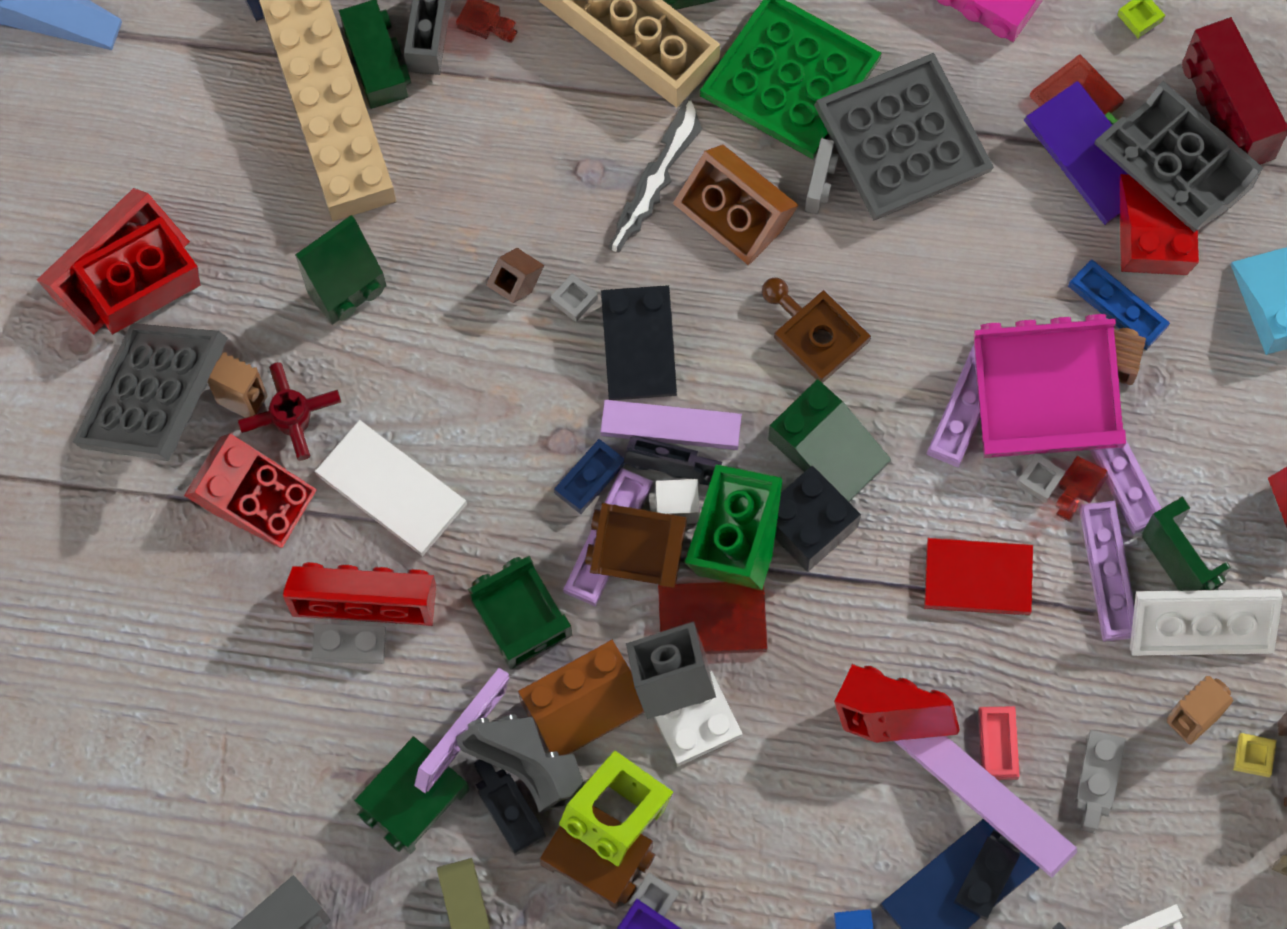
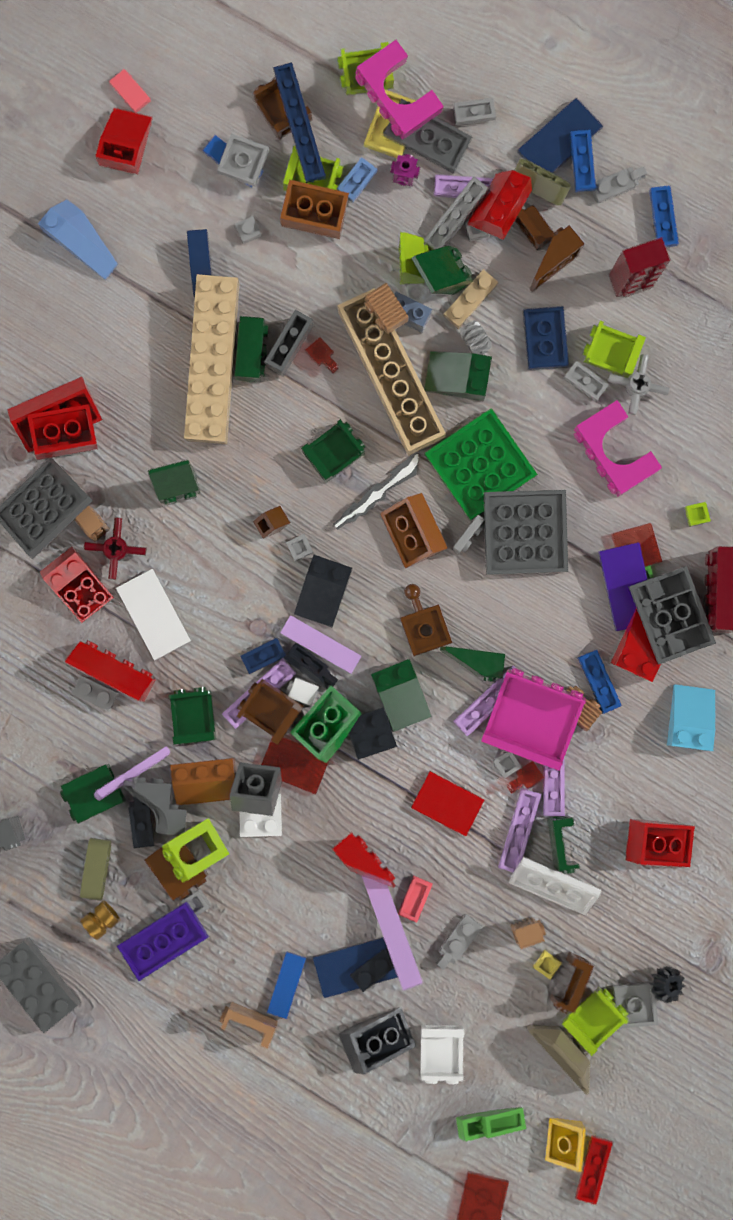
camera: 15 degrees right, 15 degrees up
(563, 143) = (334, 451): none -> dark green panel
(922, 346) = (481, 663): none -> dark green slope

